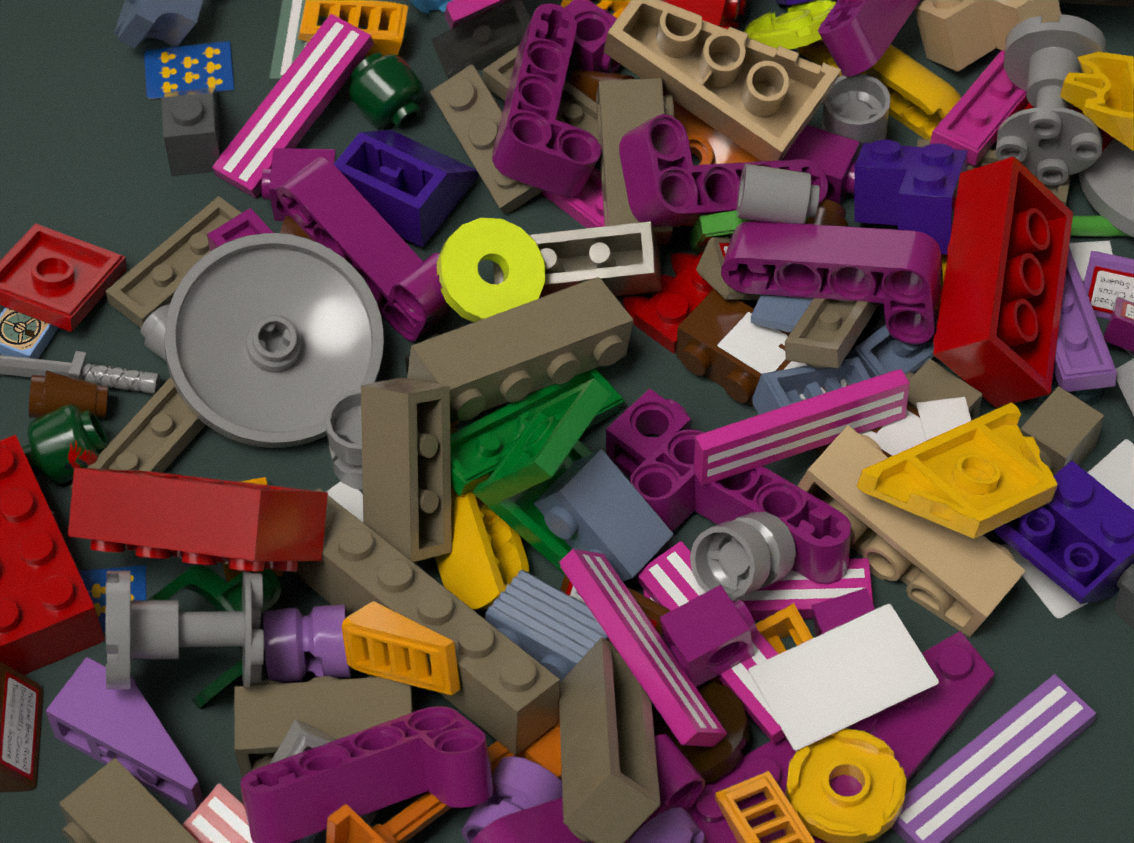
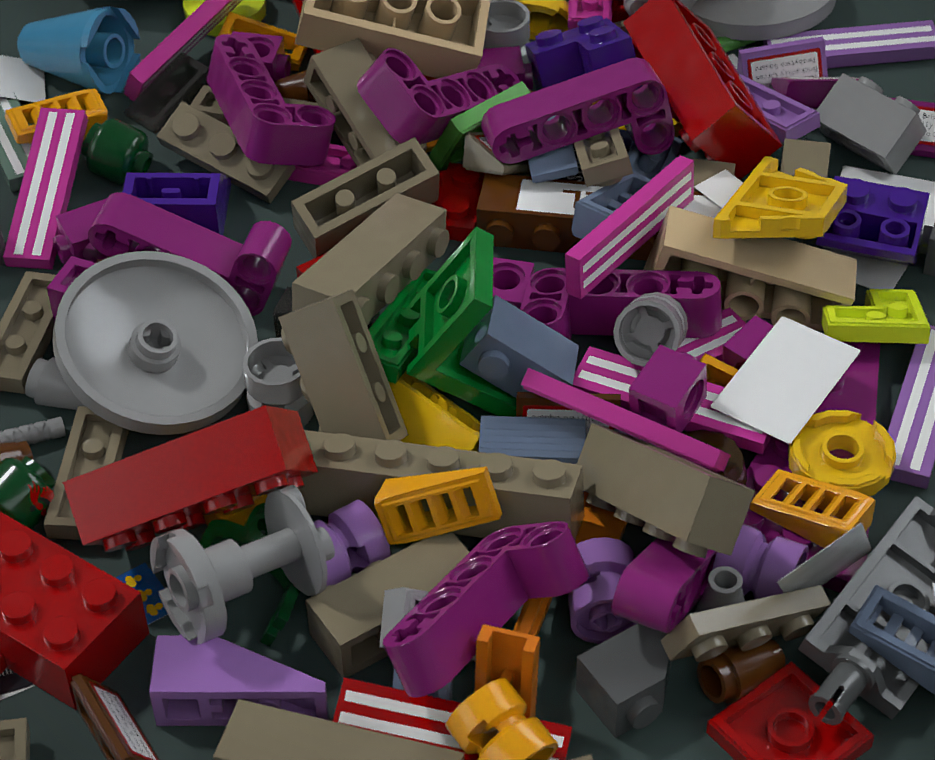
camera: 30 degrees left, 10 degrees down
(493, 241) = (314, 196): neon yellow tile -> none
(776, 195) = (503, 78): light grey brick -> none
(1011, 661) = (885, 318): none -> neon yellow tile

